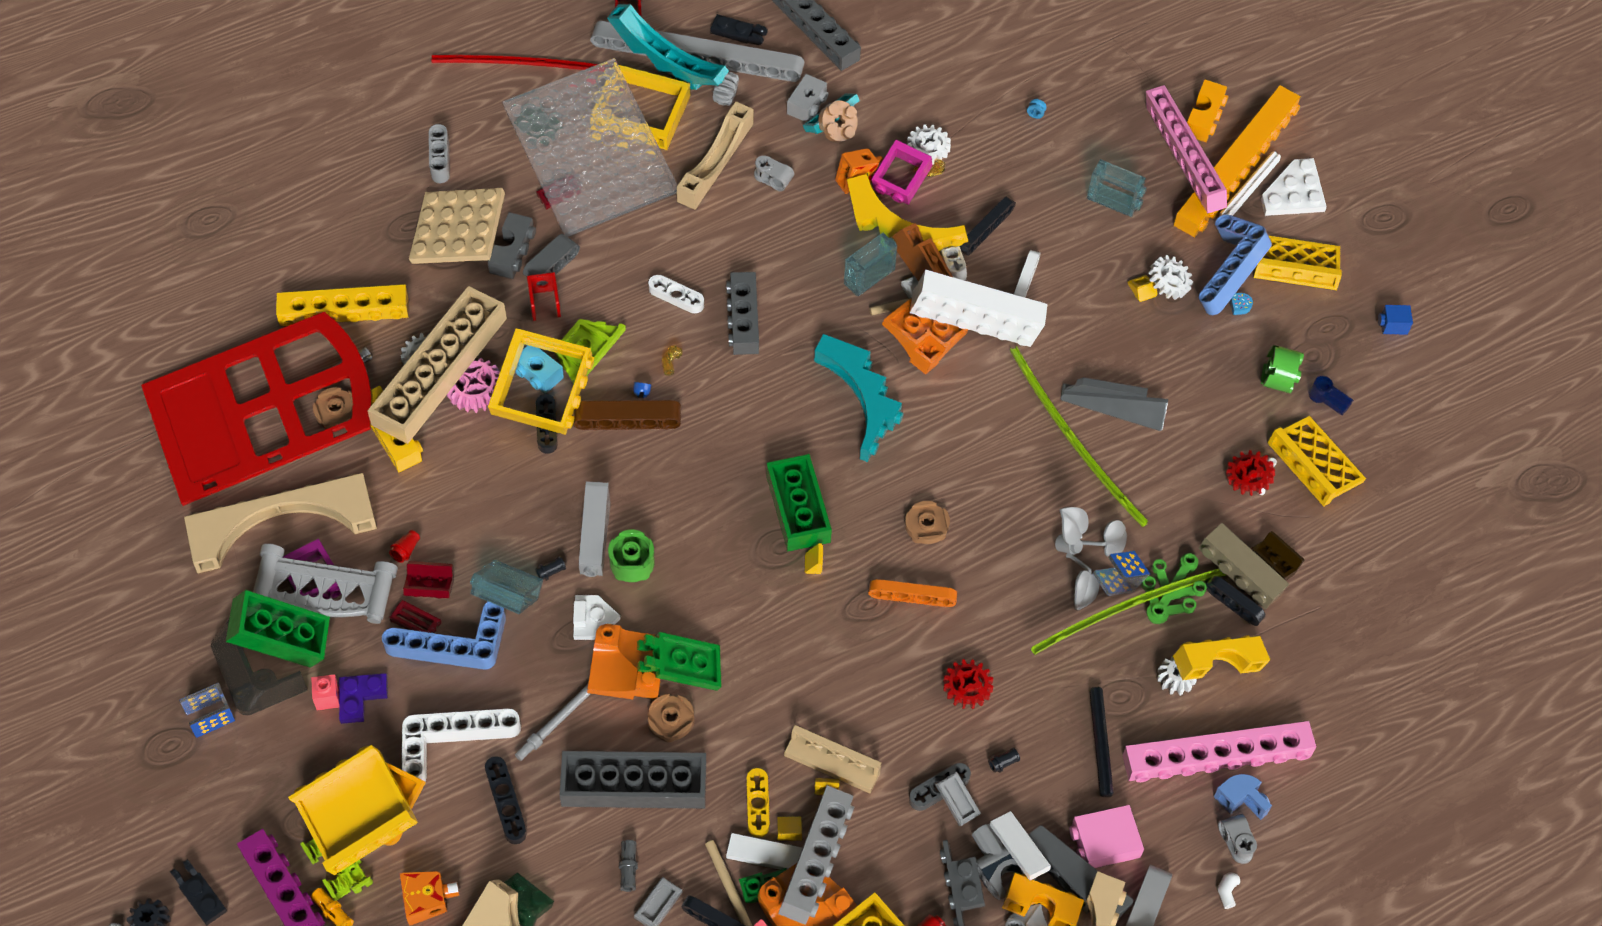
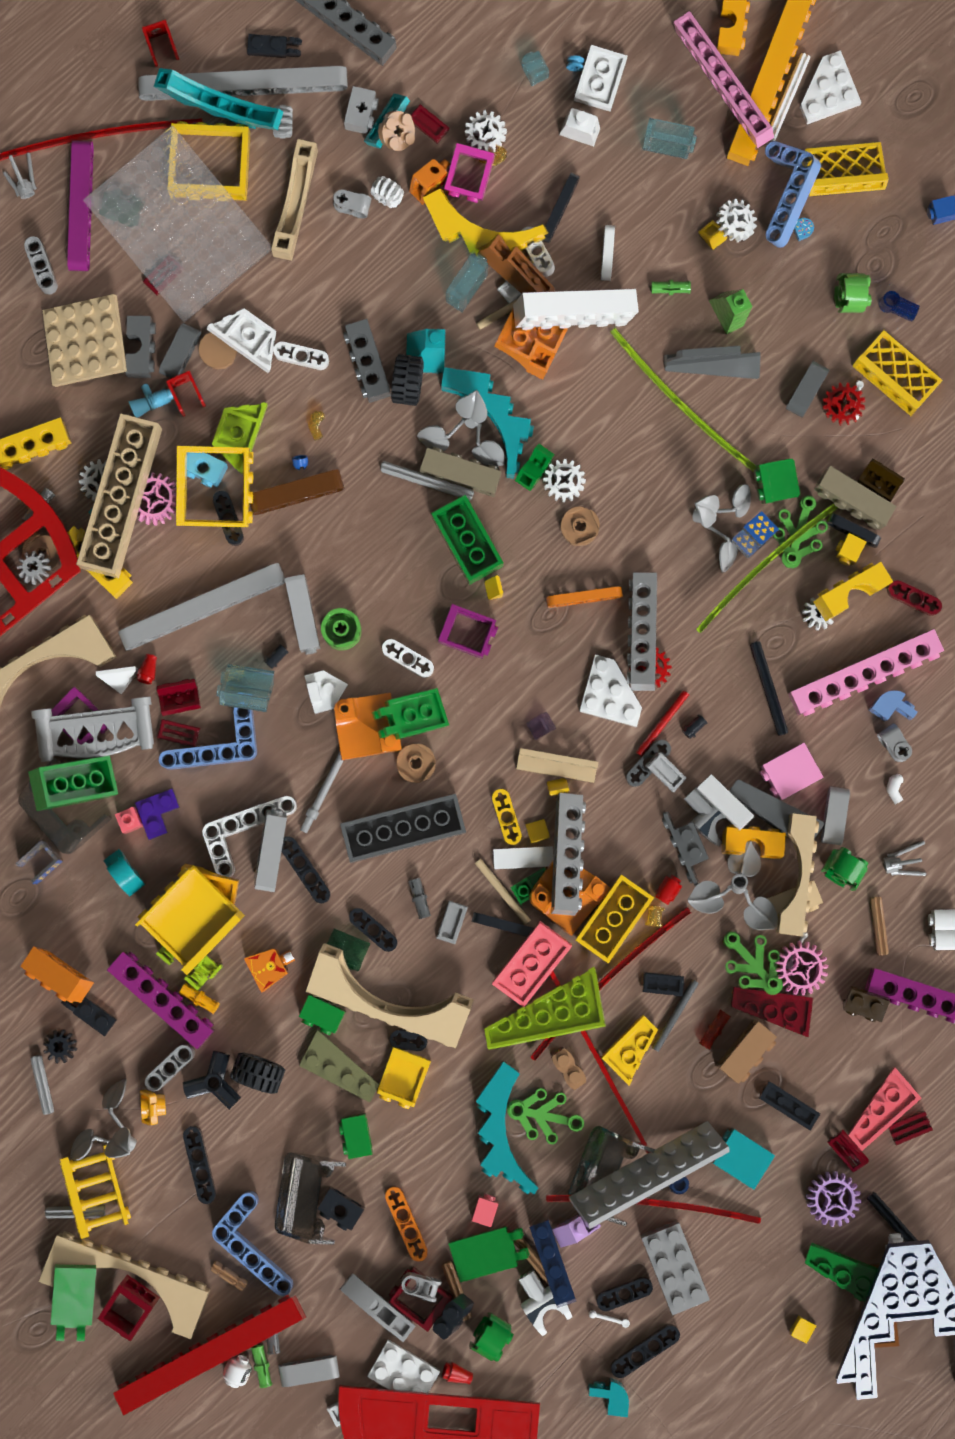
camera: 15 degrees left, 25 degrees up
(176, 832) = (56, 975): none -> orange brick
(298, 747) = (123, 873): none -> teal brick
(321, 413) = (32, 575): none -> light grey gear
(370, 545) = (118, 678): none -> white slope
(449, 88) = (24, 188): none -> light grey plant
(473, 758) = (270, 850): none -> light grey slope
(486, 499) = (202, 606): none -> light grey beam
(495, 118) = (79, 213): none -> magenta beam
(508, 296) = (151, 401): none -> medium azure piece
(577, 897) = (381, 943): none -> black beam
(591, 268) = (216, 352): none -> medium nougat tile
(625, 261) = (247, 336): none -> white wing
(698, 617) = (392, 655): none -> white beam
(752, 583) = (449, 623): none -> magenta window
(767, 436) = (426, 480): none -> light grey axle
(780, 334) = (407, 379): none -> black tyre
(809, 318) = (430, 346): none -> teal slope
(811, 438) = (460, 471): none -> dark tan brick
(812, 169) = (387, 192): none -> white gear
(826, 715) = (541, 725): none -> clear purple slope
(838, 365) = (474, 413): none -> light grey plant
(873, 127) = (429, 124): none -> dark red tile
(895, 452) = (535, 467): none -> green brick
(914, 702) = (609, 694): none -> white plate
(922, 473) = (558, 474): none -> white gear
(968, 747) = (662, 723): none -> red bar
(970, 639) = (646, 679): none -> light grey brick
(994, 103) = (535, 67): none -> clear light blue brick
(1028, 160) = (581, 127): none -> white torso
(1059, 126) = (600, 78): none -> white plate
(1071, 319) = (671, 287): none -> bright green pin
(1146, 349) = (731, 309): none -> bright green slope
(1158, 529) = (776, 481): none -> green bracket
(1212, 450) = (807, 389): none -> dark grey beam
(1227, 618) = (849, 549): none -> yellow brick
(1310, 694) = (903, 587): none -> dark red beam

